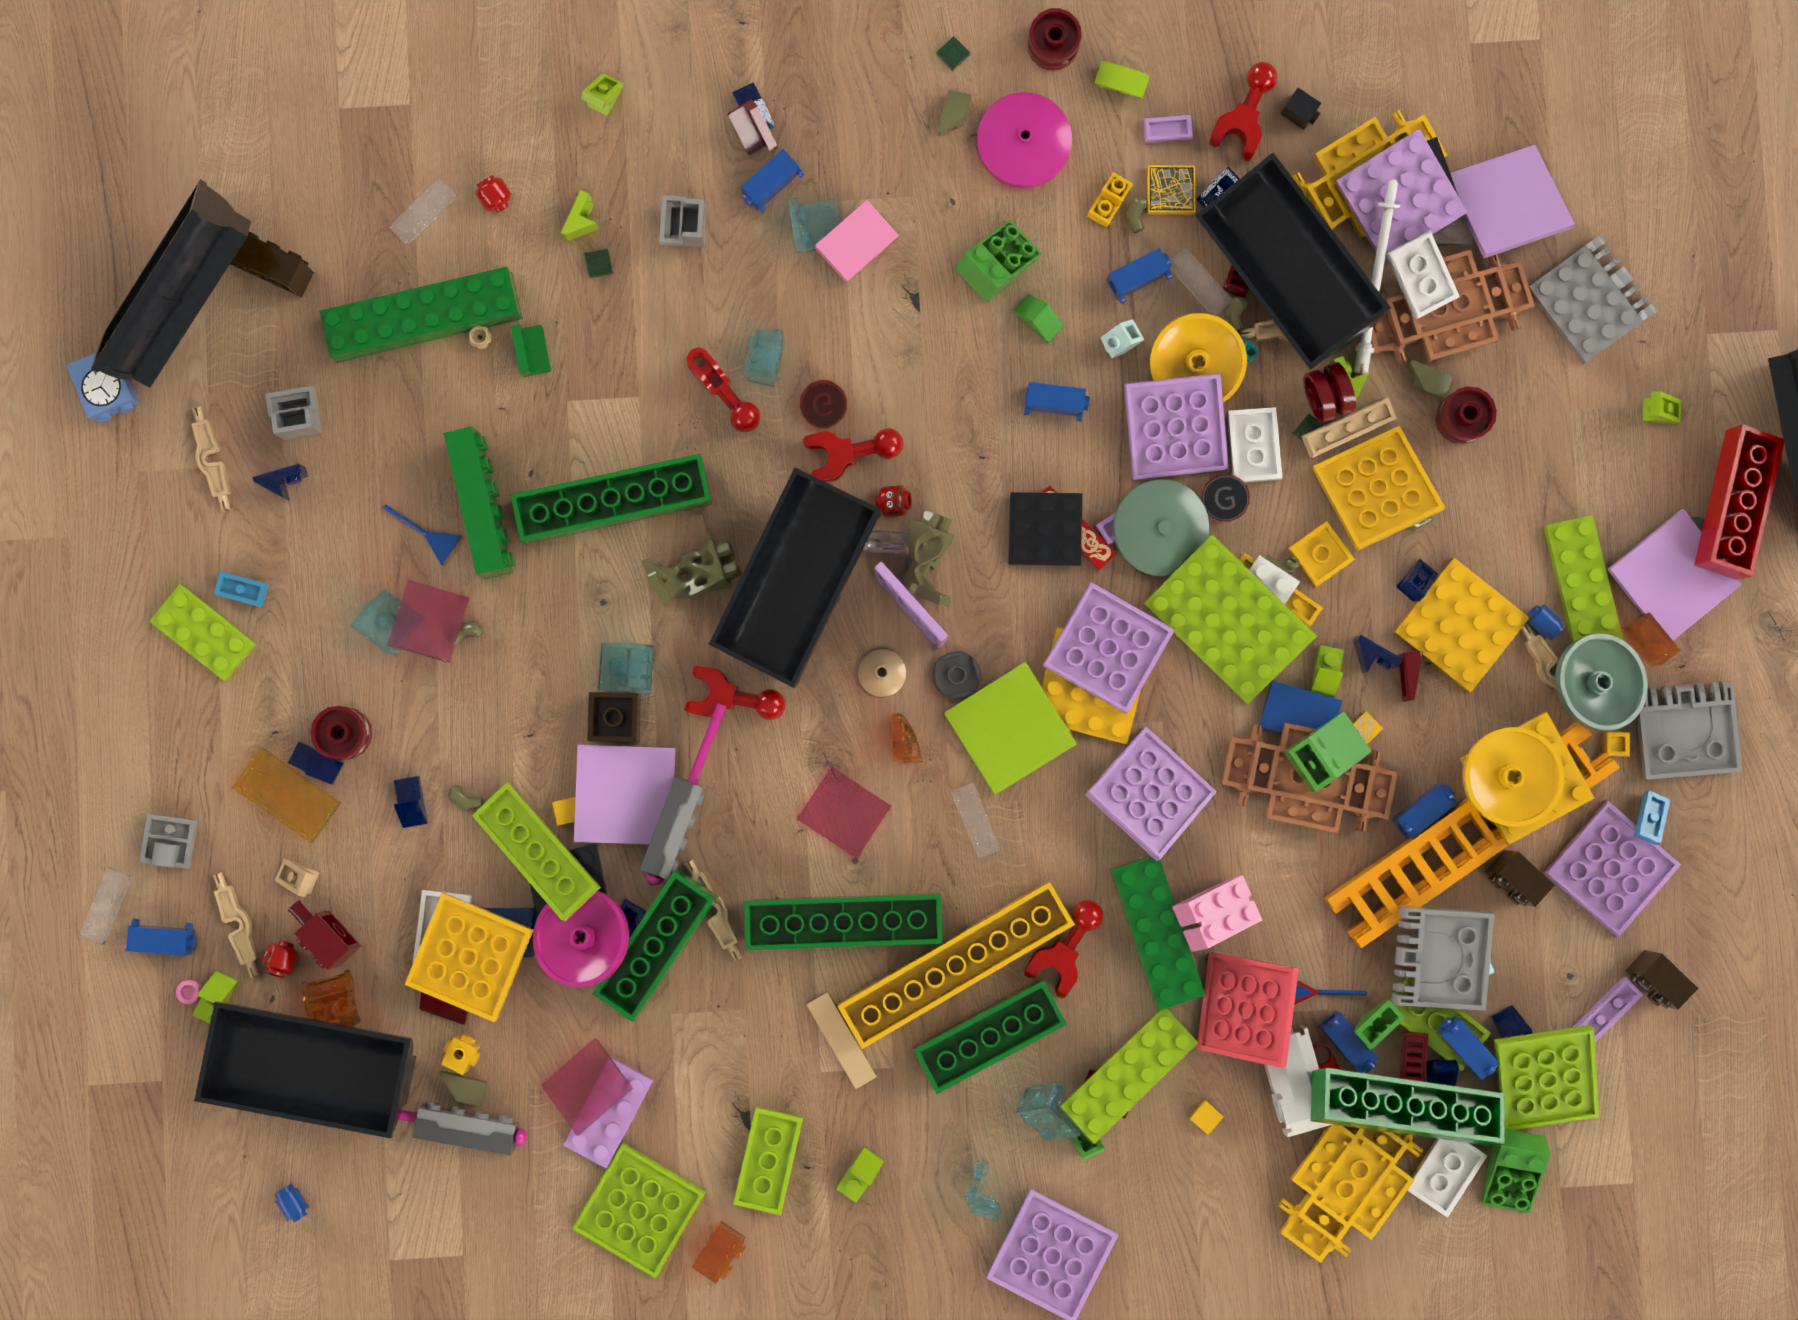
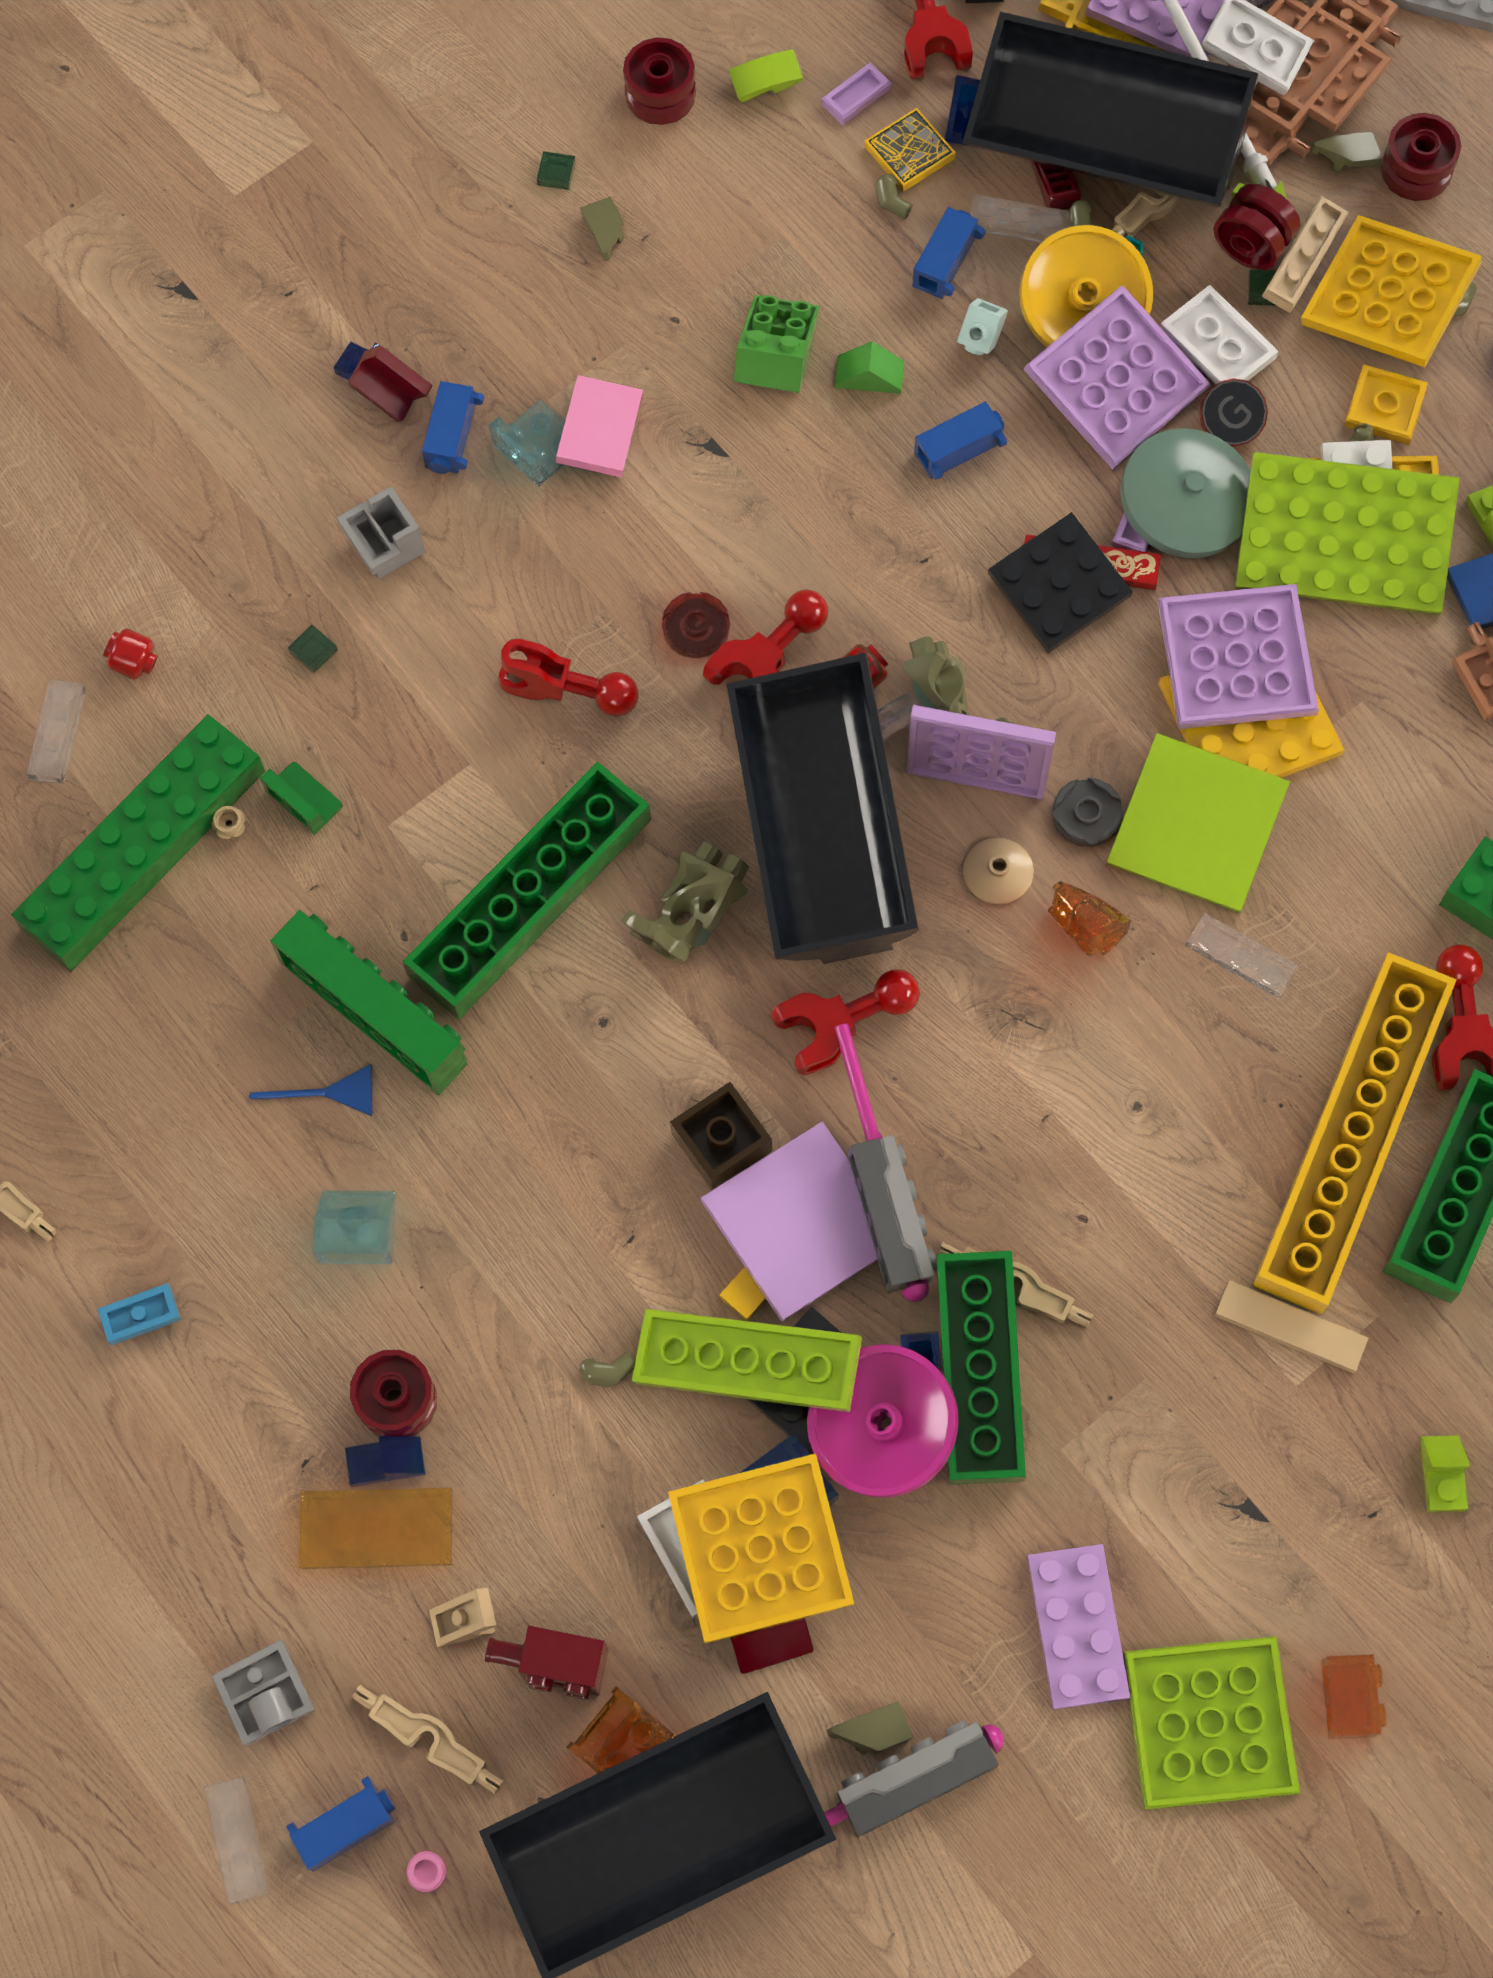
camera: 30 degrees left, 15 degrees down
(203, 632) = (125, 1403): lime plate -> none
(217, 988) = (466, 1855): lime slope -> none
(276, 479) = (91, 1155): clear blue slope -> none
(280, 959) = (517, 1737): red head -> none
(294, 412) = (61, 1055): light grey plate -> none
(410, 802) = (541, 1422): clear blue slope -> none
(428, 621) = (407, 1182): clear pink piece -> none
(455, 1060) = (839, 1698): yellow brick -> none
(469, 628) = (456, 1168): olive arm -> none
(576, 223) = (257, 616): lime slope -> none
(586, 1086) = (1027, 1610): clear pink piece -> none
(602, 93) = (182, 467): lime slope -> none
(626, 668) = (688, 1068): clear light blue slope -> none
(765, 357) = (589, 612): clear light blue slope -> none
(768, 1160) = (1321, 1537): lime plate -> none
(843, 921) = (1182, 1178): green brick -> none
(844, 812) = (1080, 1059): clear pink piece -> none
(1020, 160) = (706, 205): dark pink dish -> none
(1110, 200) = (850, 202): yellow slope -> none
(1151, 793) = (1418, 779): lavender tile -> none

